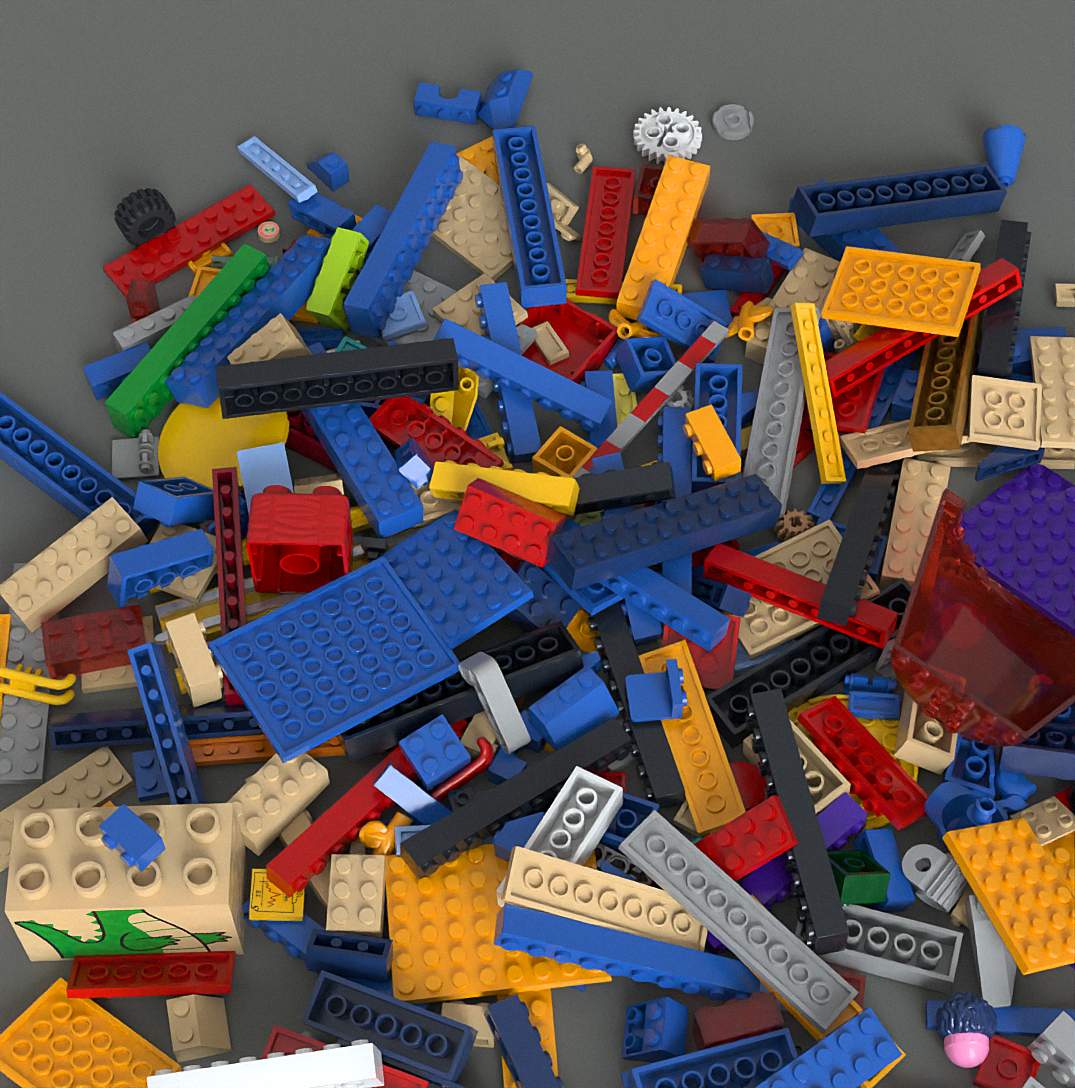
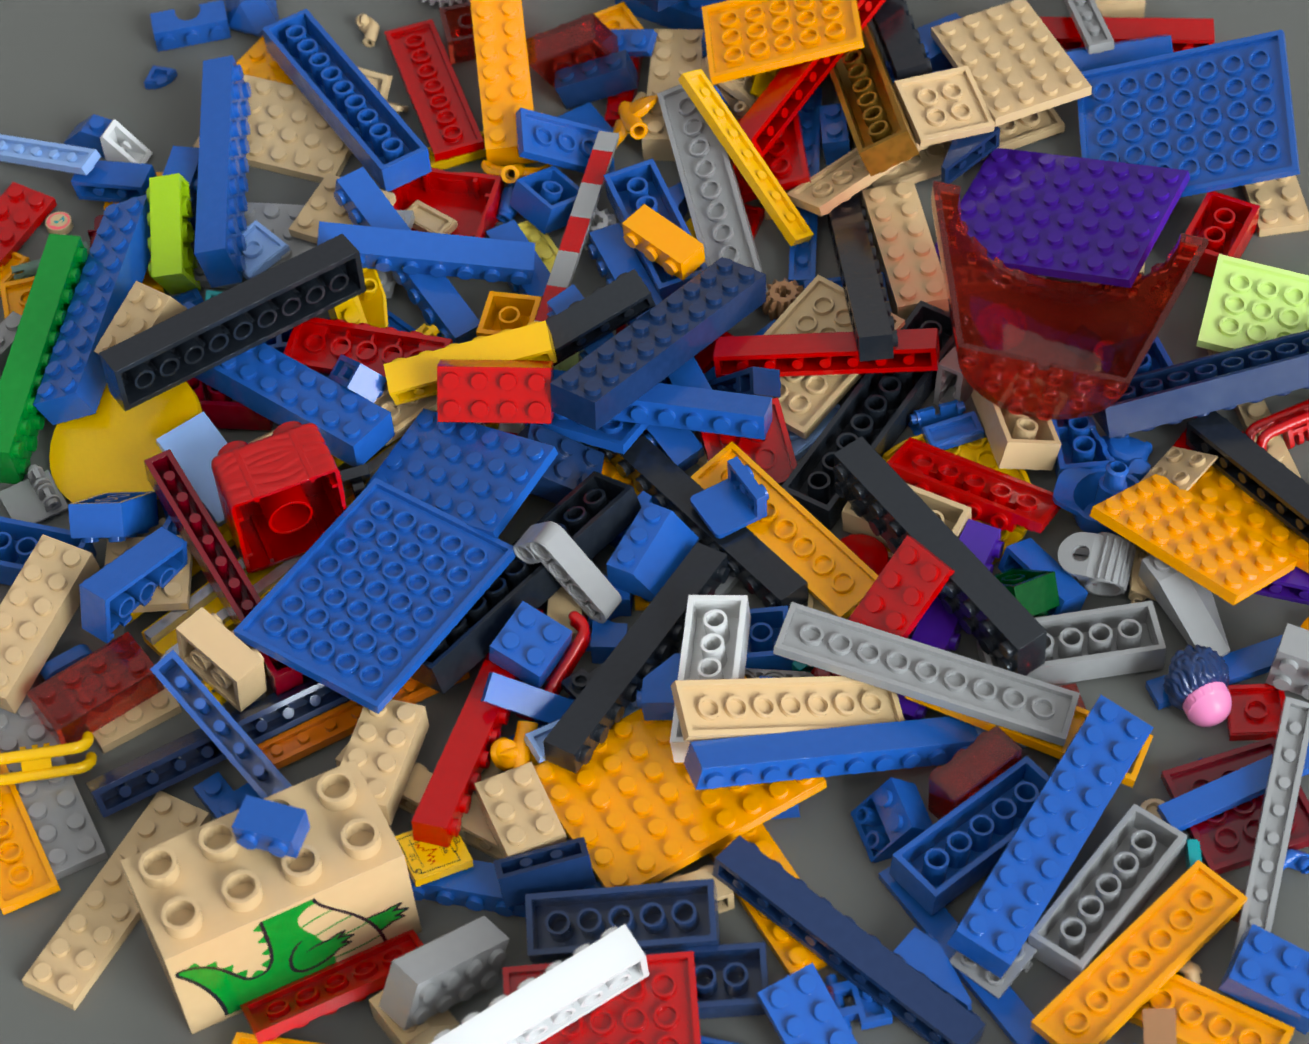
camera: 20 degrees left, 5 degrees down
(90, 605) = (64, 660): none -> blue beam
(230, 1006) = (444, 972): none -> light grey brick
(346, 188) = (122, 145): none -> white slope
(404, 137) = (159, 77): none -> blue tile

